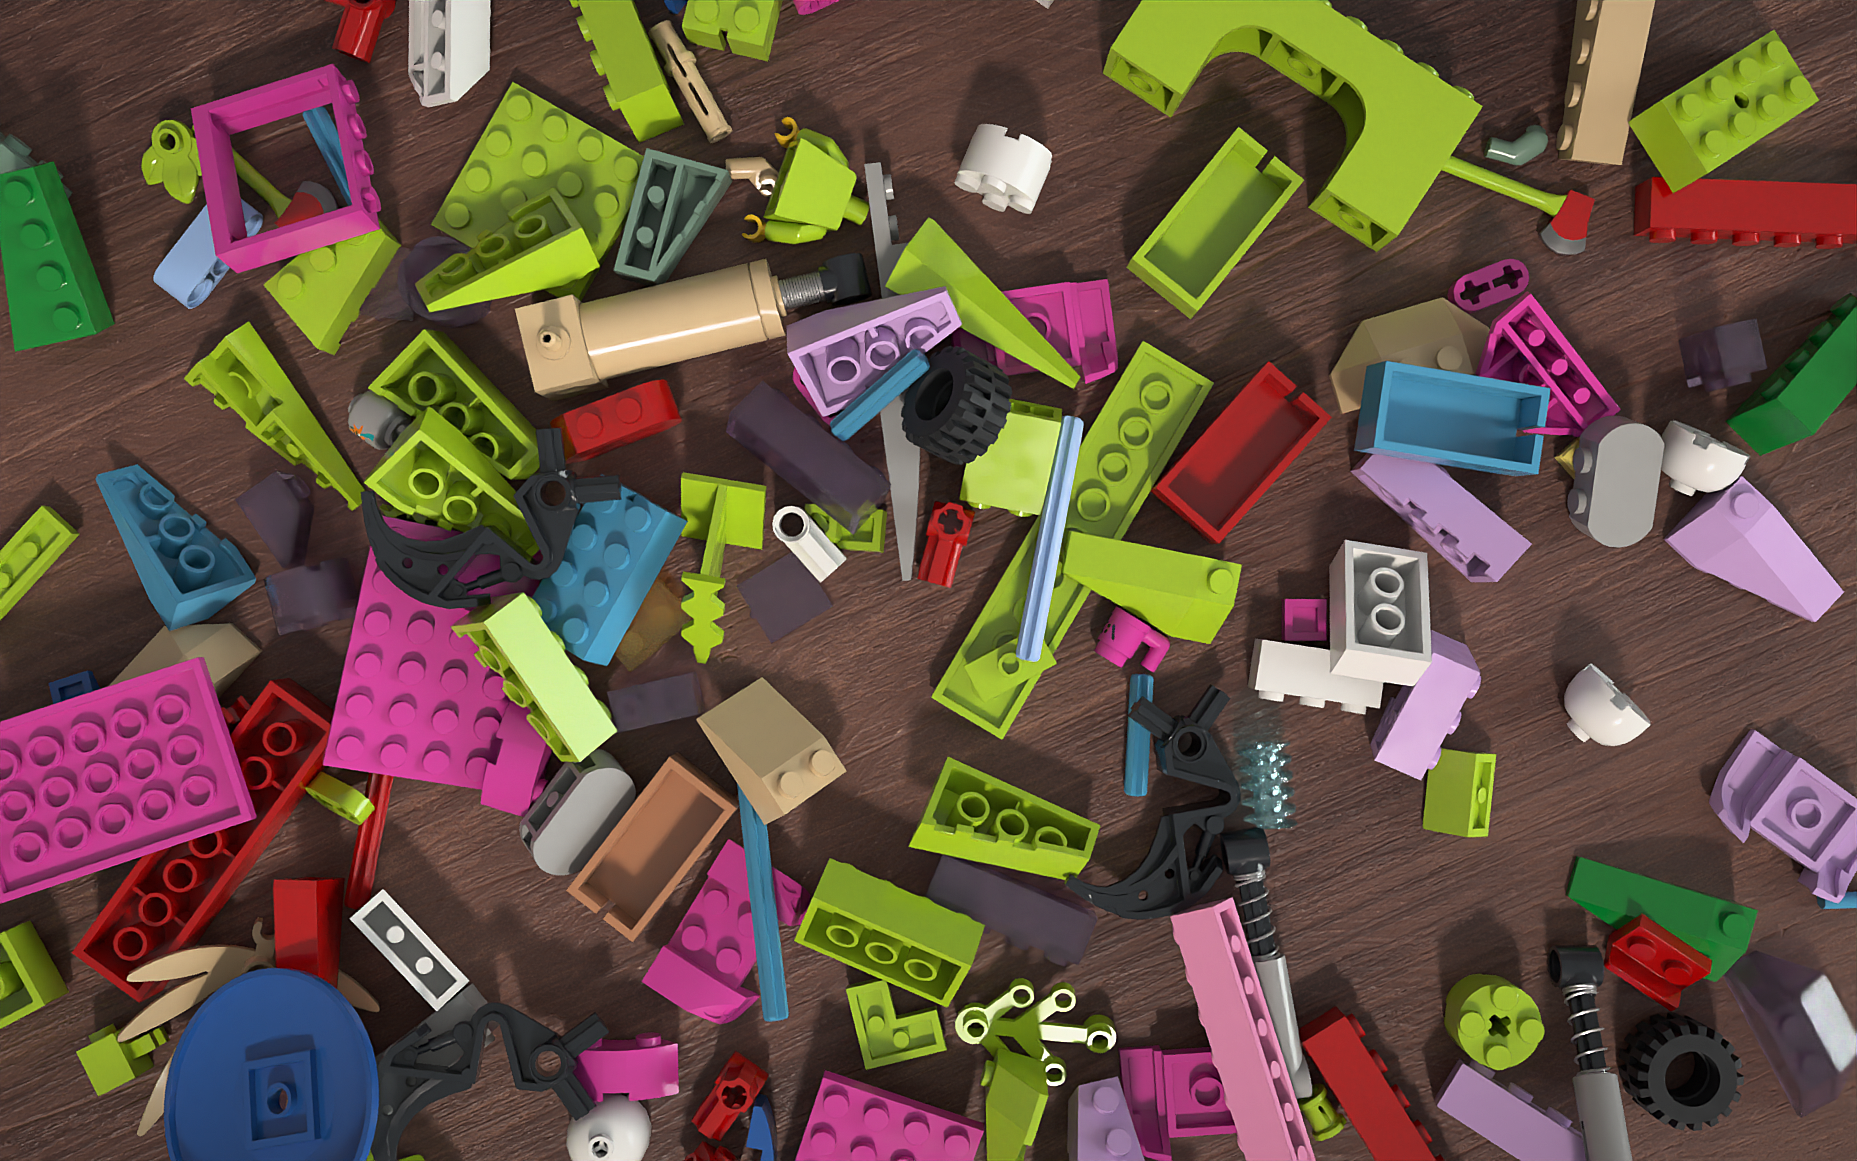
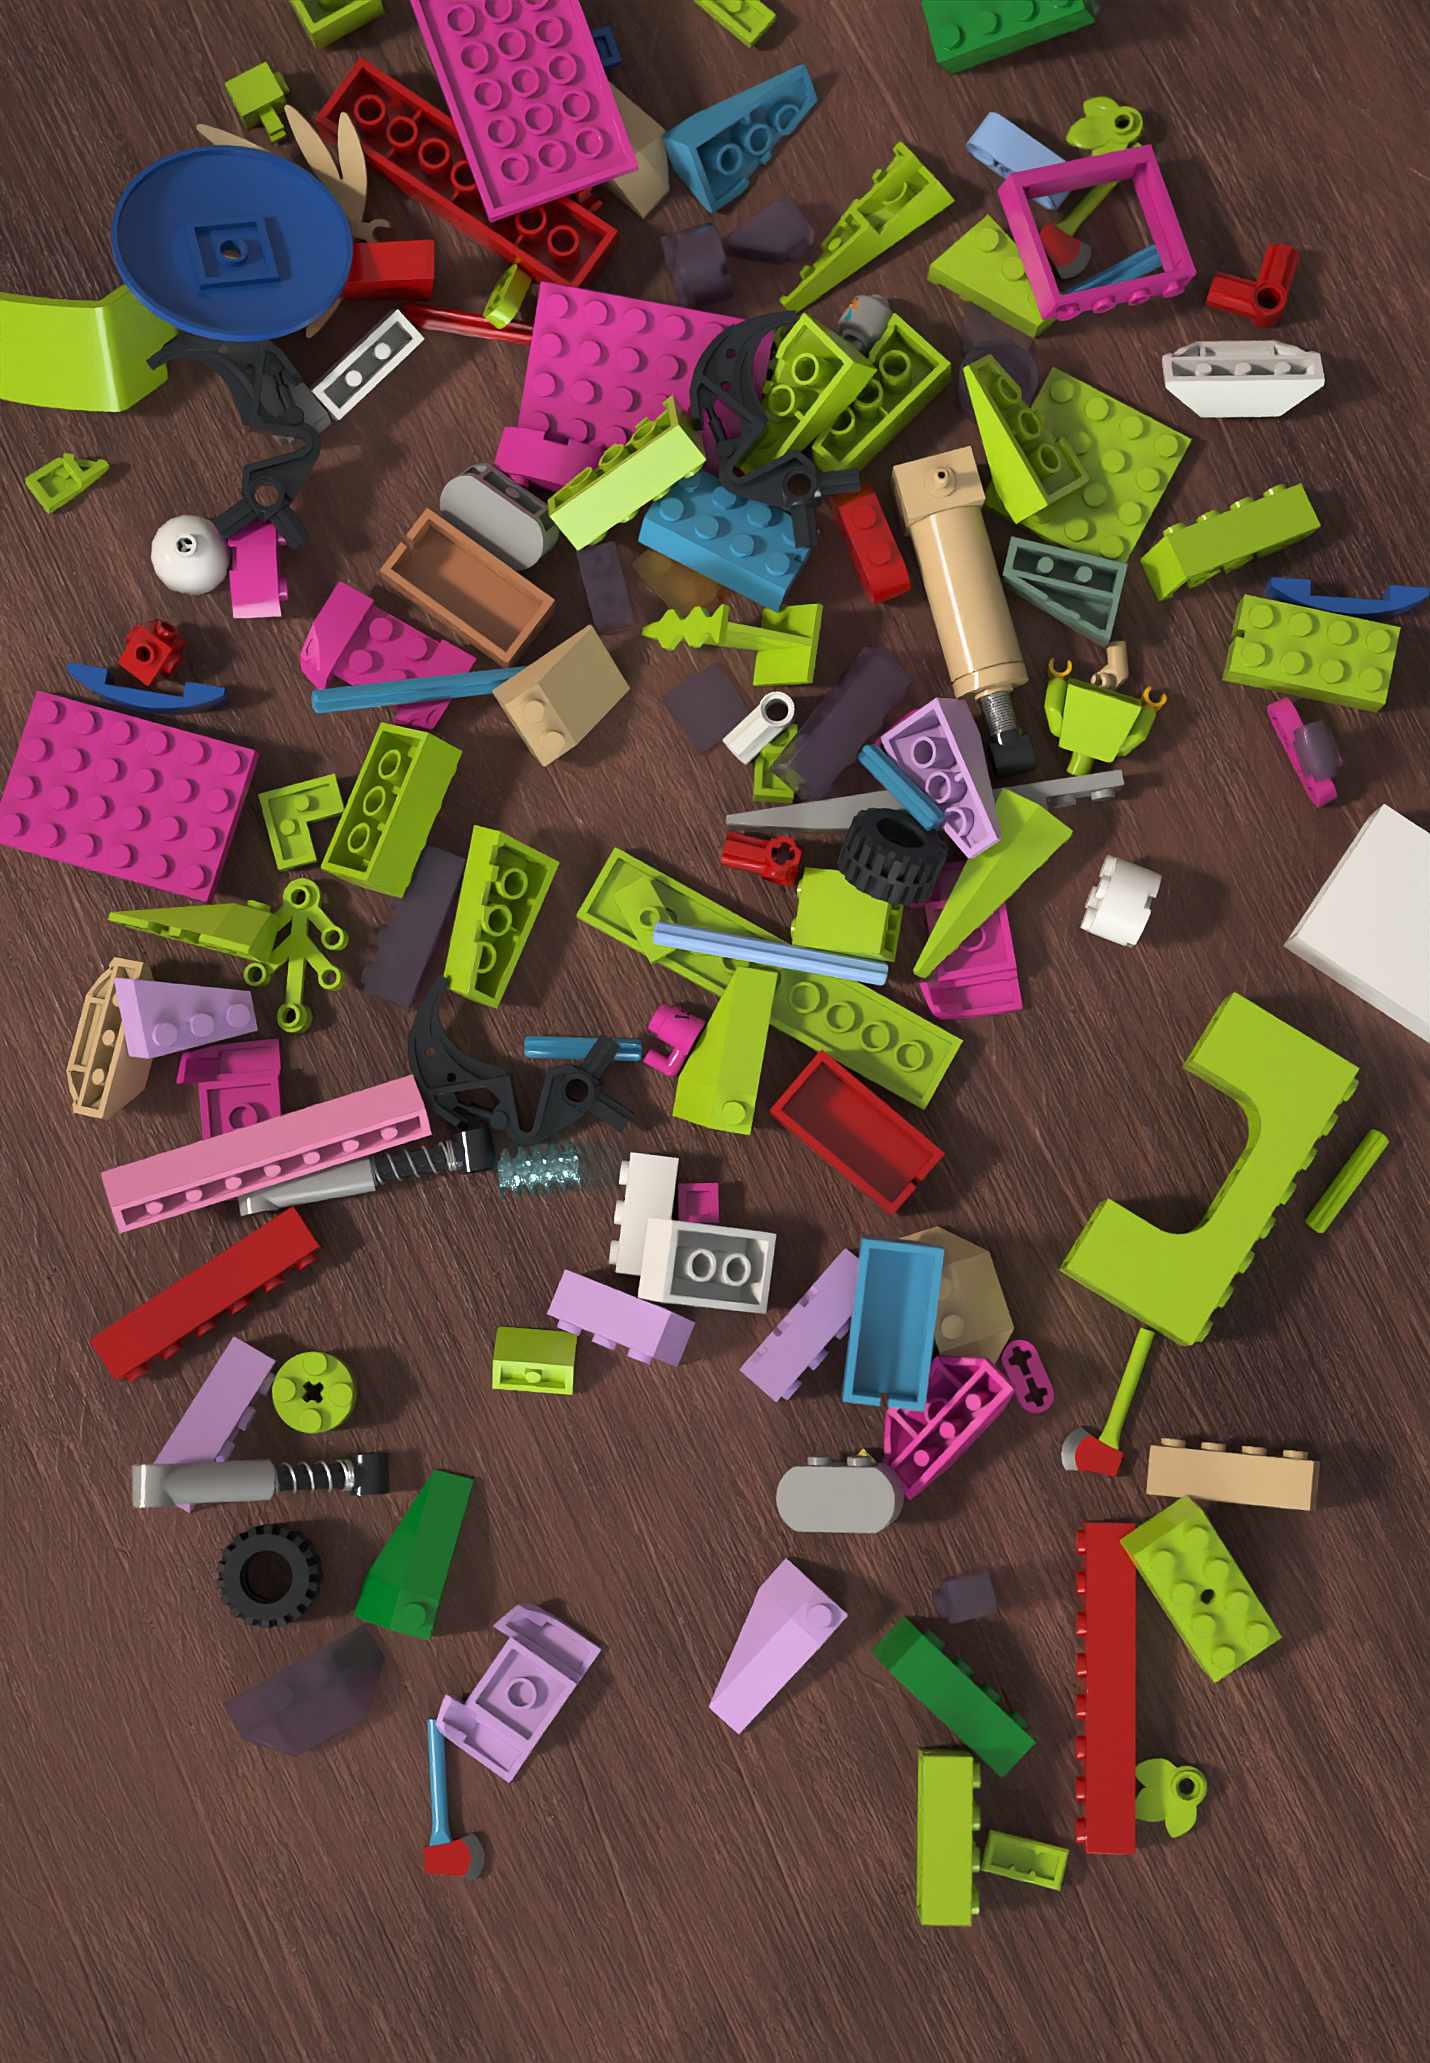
camera: 85 degrees right, 5 degrees down
(668, 41) = (1212, 597): tan pin -> none
(733, 1093) = (237, 670): red piece -> none
(1214, 223) = (1076, 1104): lime piece -> none
(1321, 1114) = (209, 1230): lime bush -> none
(1520, 150) = (1160, 1403): sand green arm -> none
(1602, 710) = (618, 1491): white cylinder -> none
(1654, 961) = (374, 1549): red bracket -> none
(1699, 460) = (864, 1578): white cylinder -> none

